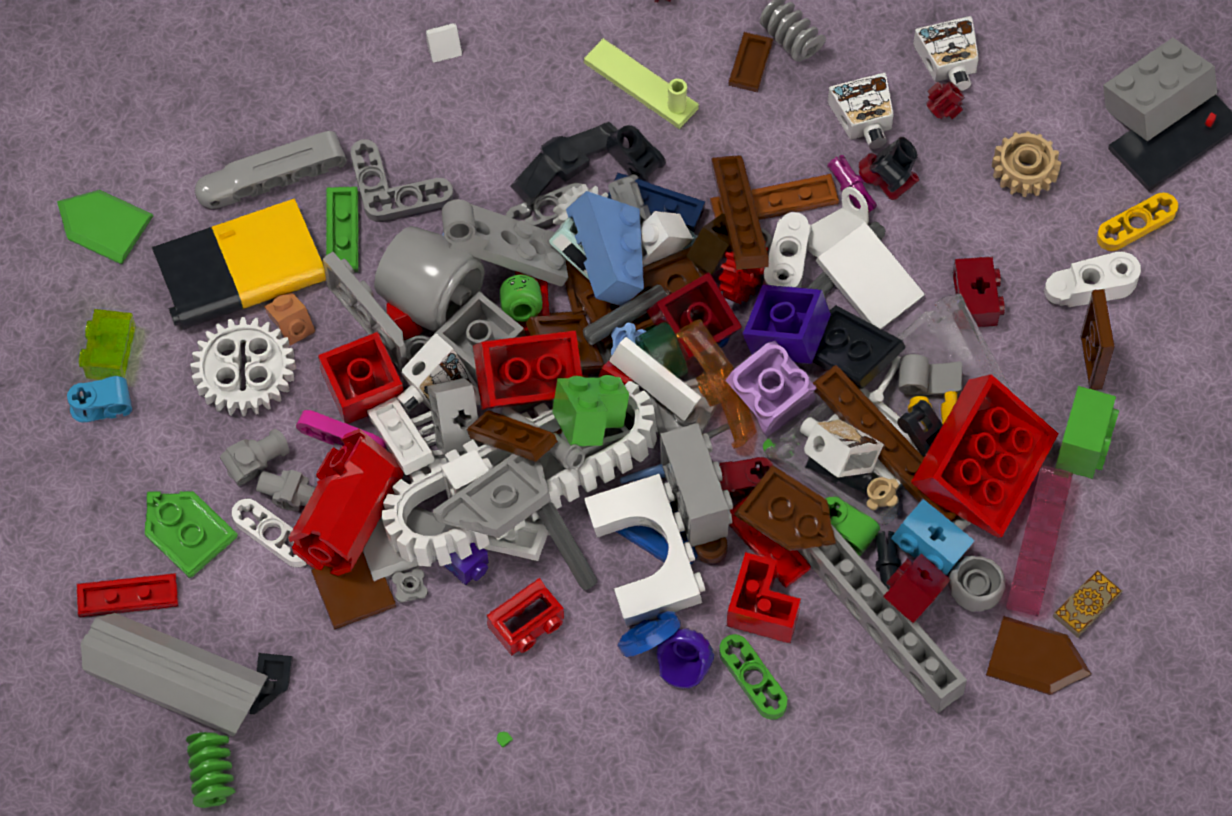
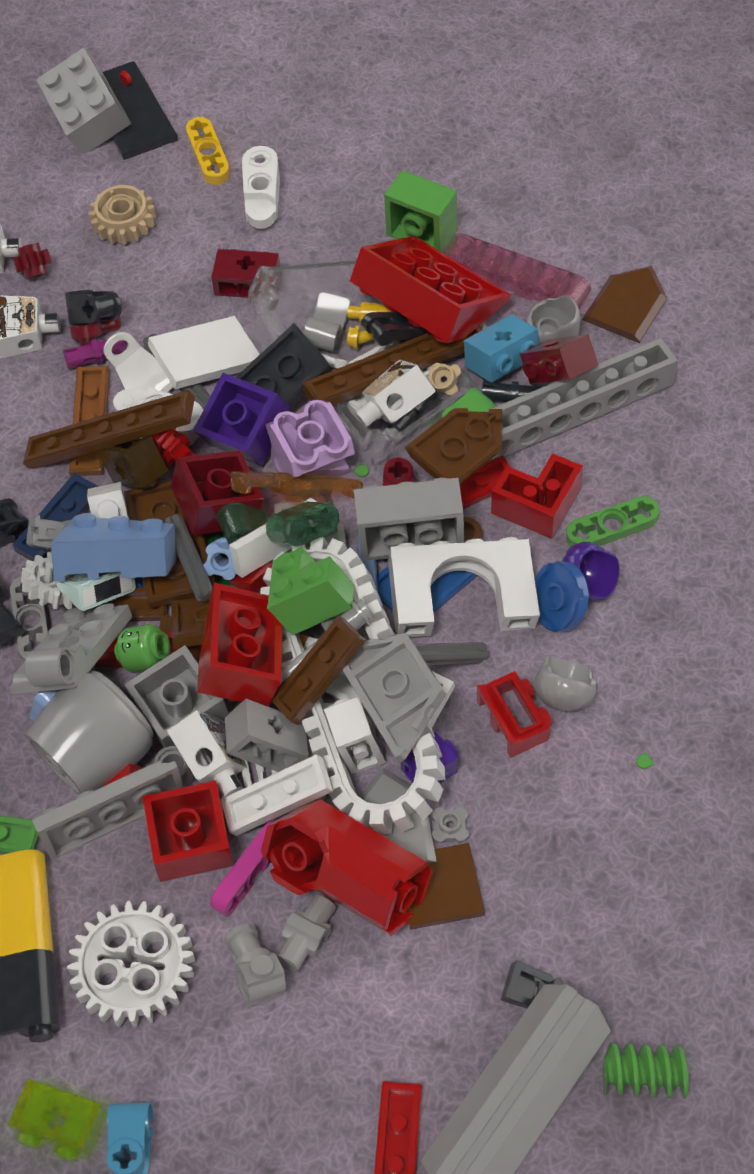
camera: 75 degrees left, 5 degrees down
(186, 529) = (325, 1063): bright green tile -> none
(247, 526) = (324, 974): white beam -> none
(290, 317) = (79, 902): nougat bracket -> none
(562, 654) = (564, 684): none -> light grey hair
(660, 403) = (324, 517): none -> clear green beam
(1087, 603) = (582, 254): tile -> none
(1097, 339) = (335, 179): reddish brown tile -> none

